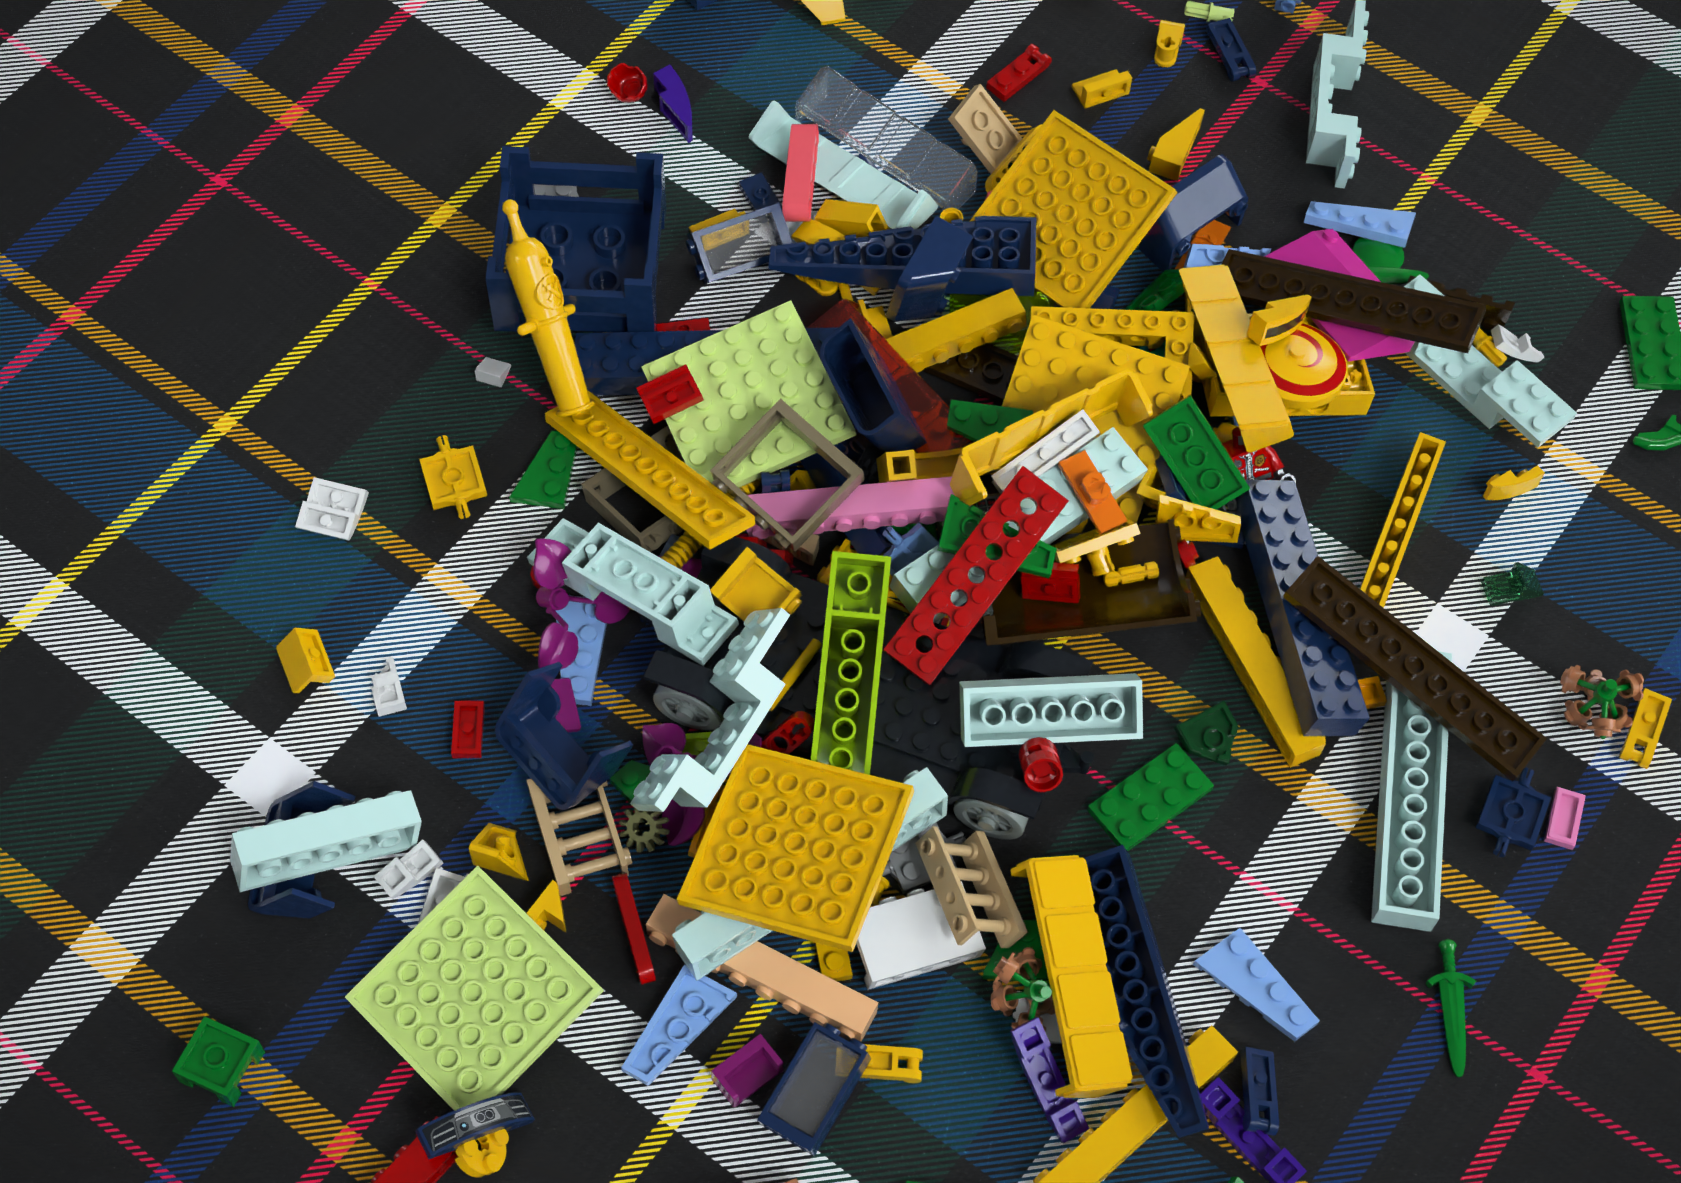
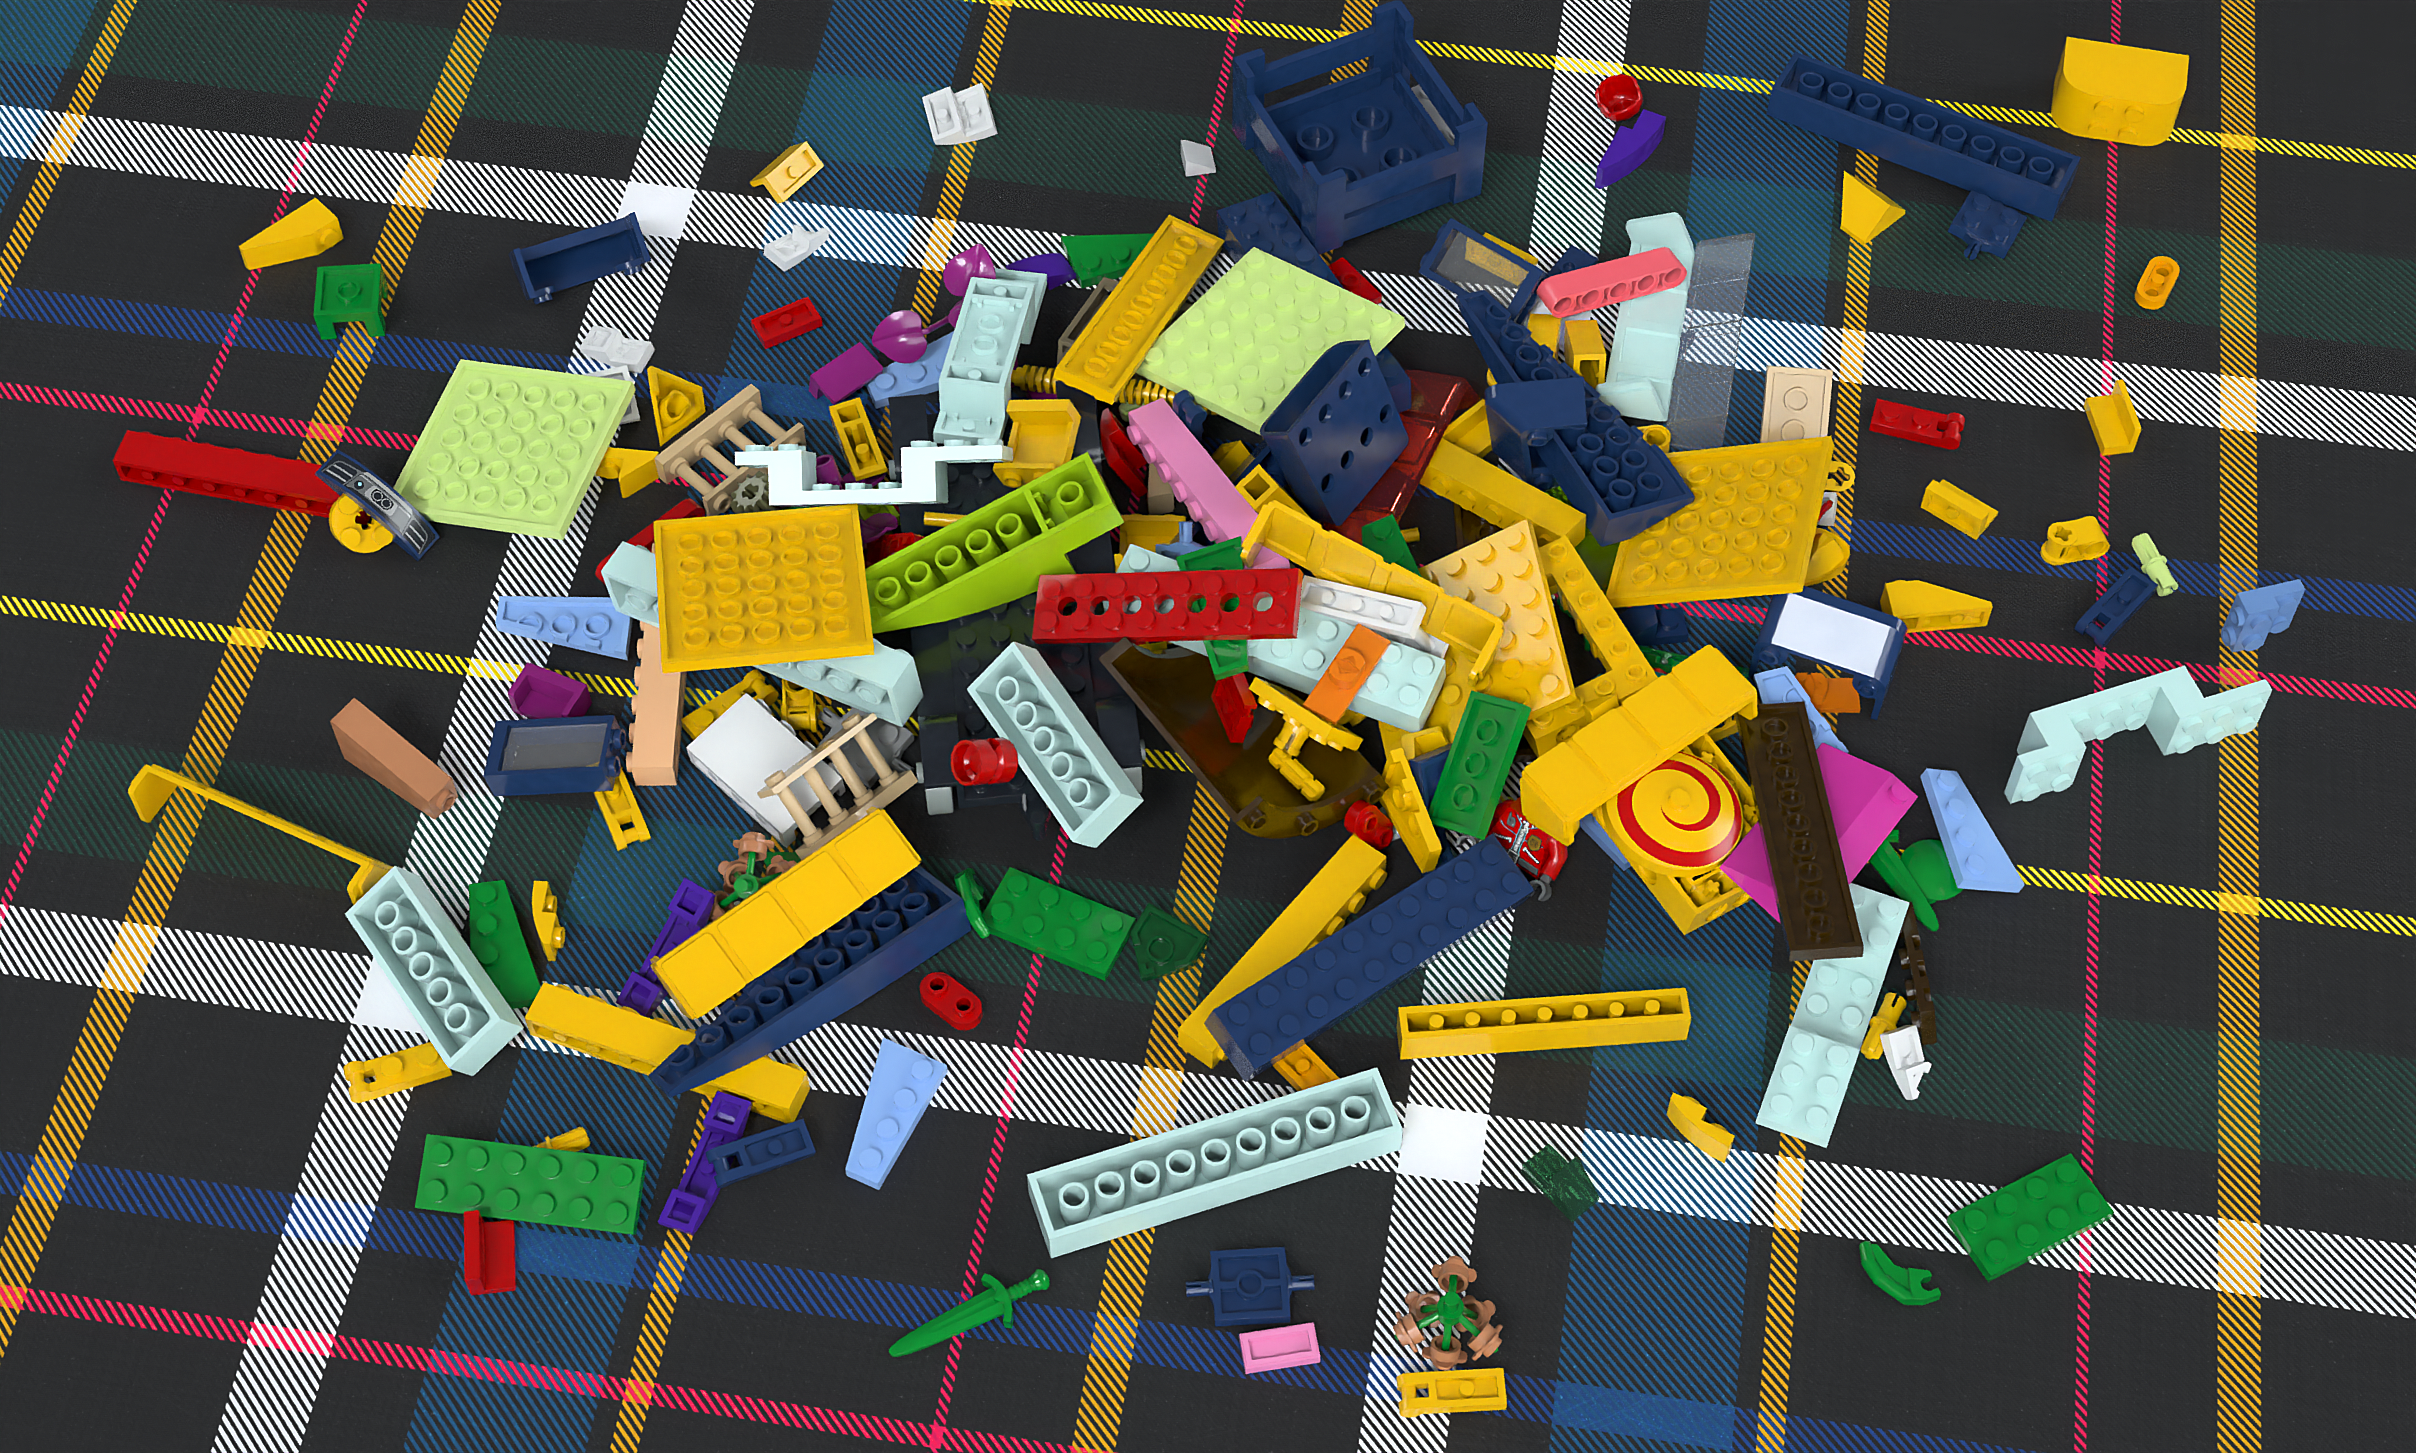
camera: 65 degrees right, 5 degrees down
(108, 1076) = (294, 237): none -> yellow slope
(324, 840) = (592, 258): light aqua brick -> none
(453, 477) = (1053, 184): yellow plate -> none
(535, 525) = (1052, 264): none -> dark purple slope
(545, 316) = (1234, 130): yellow piece -> none
(546, 748) = (794, 372): dark blue windscreen -> none
(640, 727) = (857, 439): none -> yellow slope
(670, 394) = (1225, 275): red plate -> none
(815, 440) = (1198, 355): dark tan window -> none
(976, 1166) = (546, 920): none -> yellow slope
(1104, 842) = (971, 894): none -> green piece
(1183, 899) = (949, 999): none -> red plate
(1278, 319) = (1708, 763): yellow slope -> none
(1415, 668) = (1346, 1091): dark brown plate -> none

